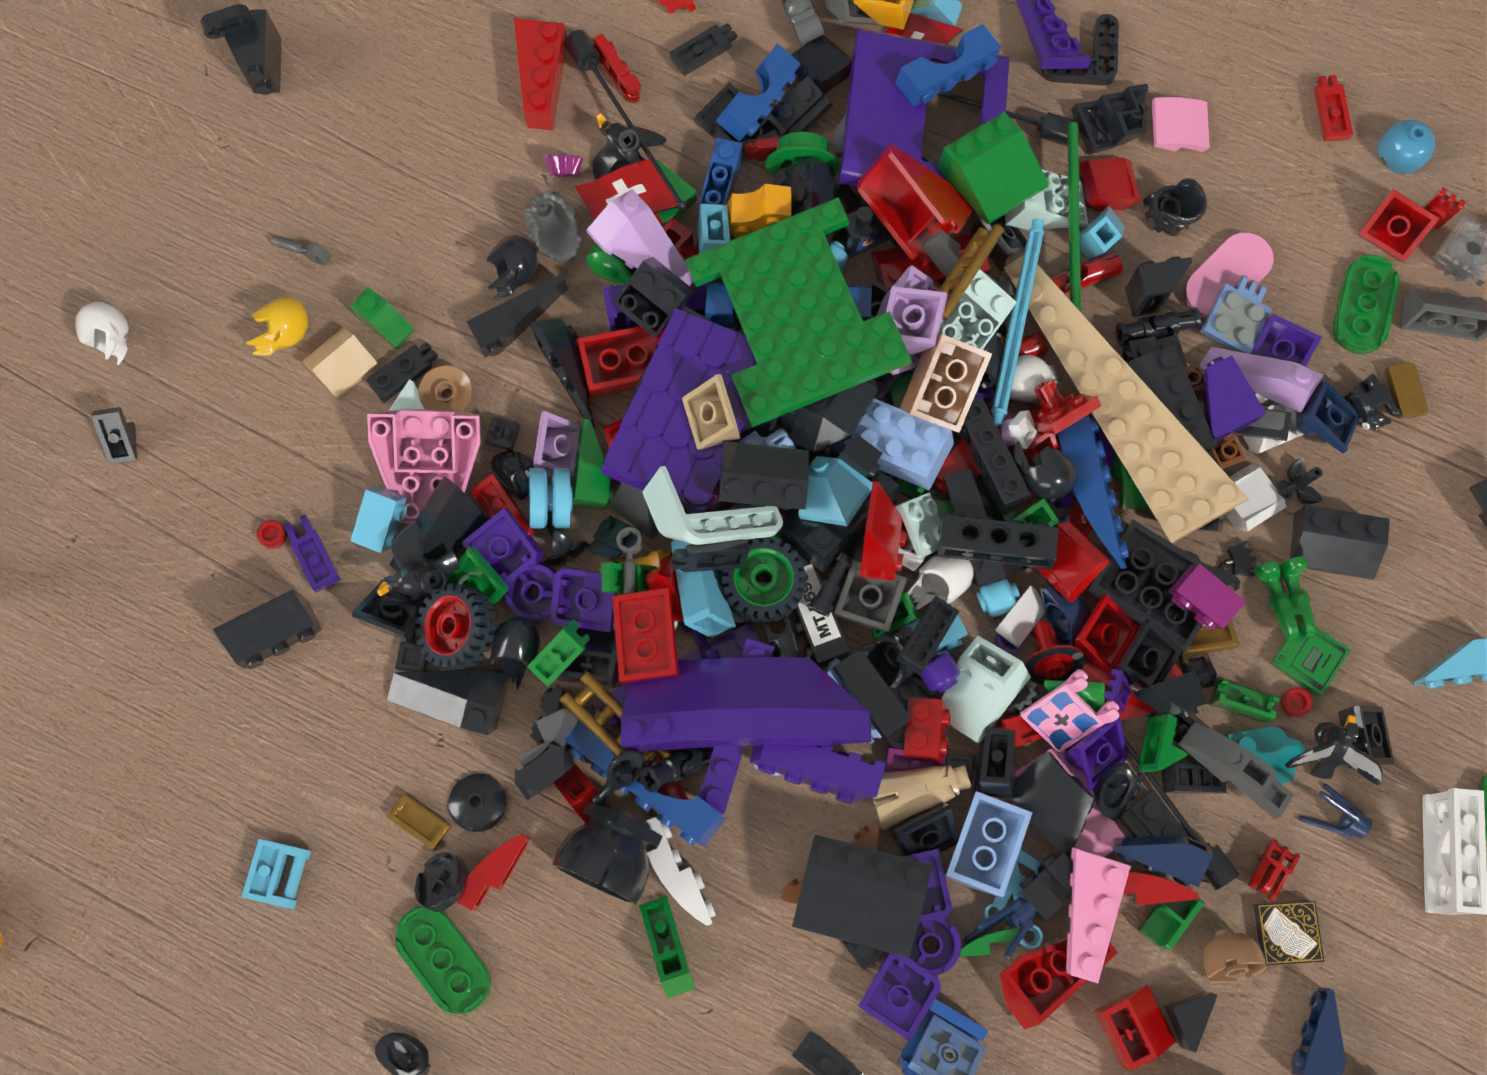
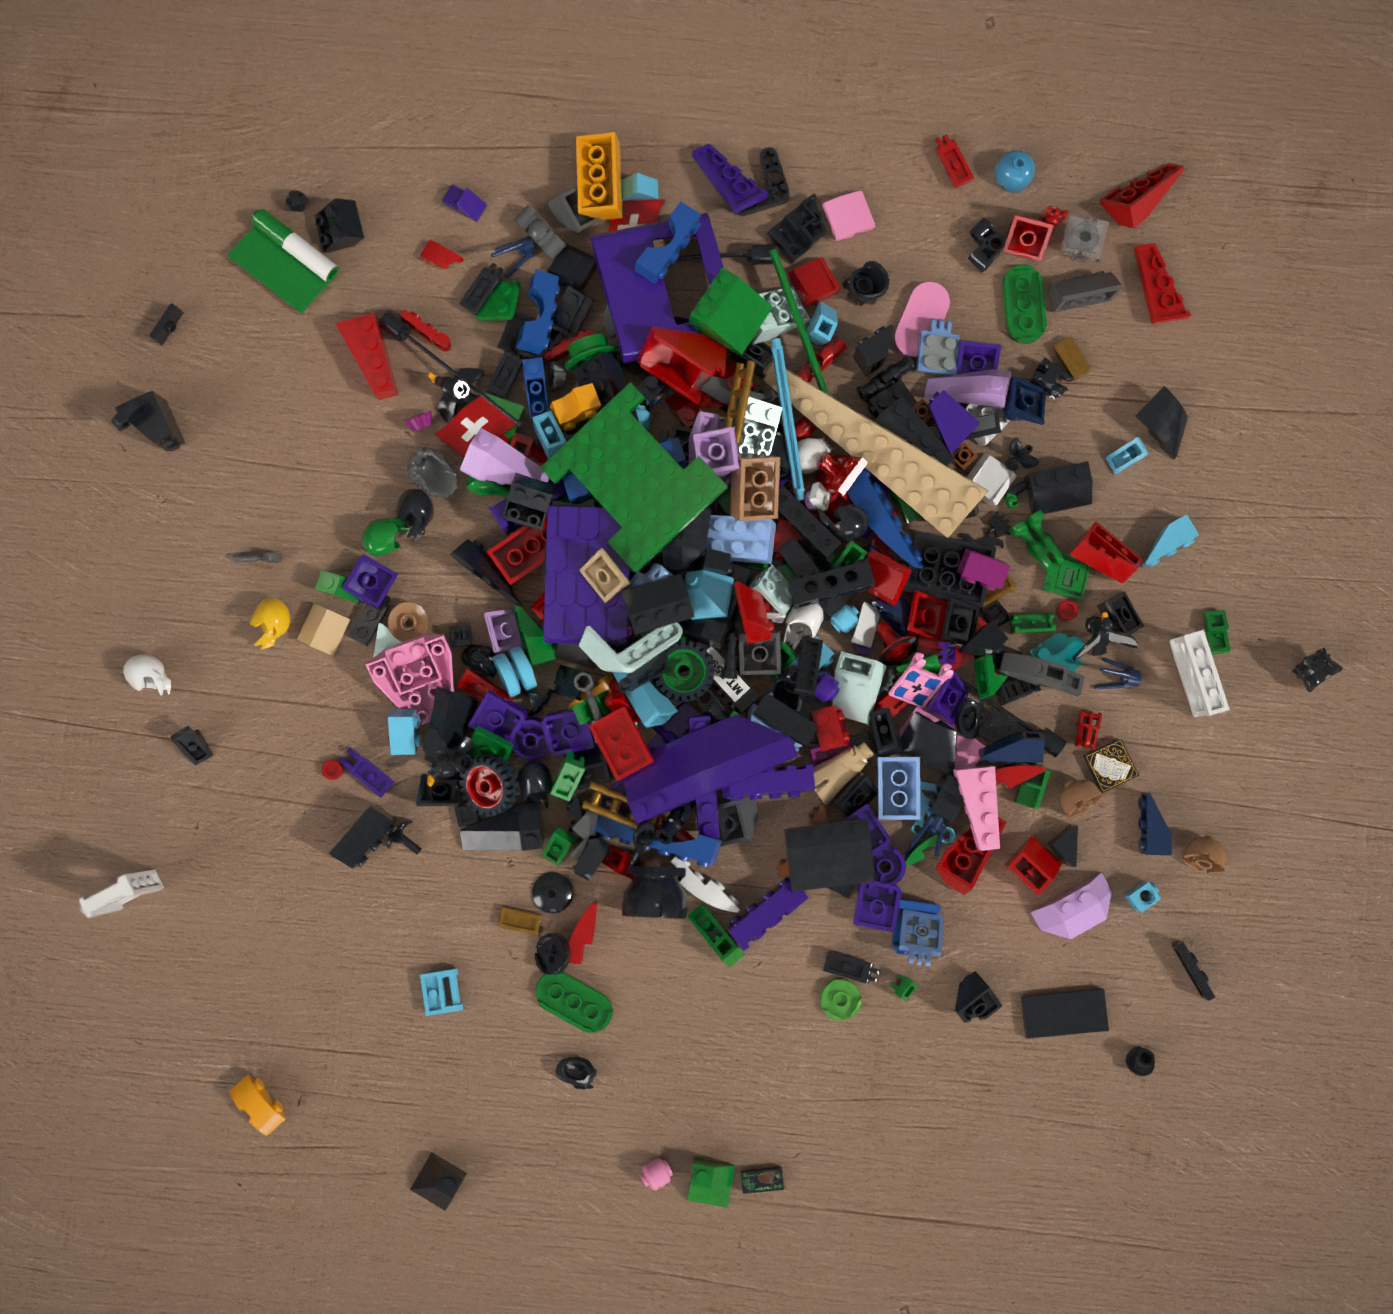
camera: 20 degrees left, 10 degrees up
(314, 648) = (398, 837): none -> black plant
(420, 324) = (369, 581): none -> dark purple slope
(457, 272) = (380, 535): none -> green helmet
(506, 322) = (427, 557): black slope -> none
(510, 742) = (558, 846): none -> green slope
(689, 150) = (504, 375): none -> black hinge
(719, 70) = (501, 302): none -> green wing
(745, 944) = (765, 913): none -> dark purple wedge
(751, 174) = (557, 376): none -> dark grey piece
(755, 802) = (737, 821): none -> dark grey slope
(773, 20) = (524, 246): none -> dark blue plant
(1272, 527) = (1012, 494): none -> arm
(1342, 205) = (984, 235): none -> black piece
(1376, 647) = (1106, 553): none -> red wedge
(1443, 534) = (1127, 455): none -> medium azure slope

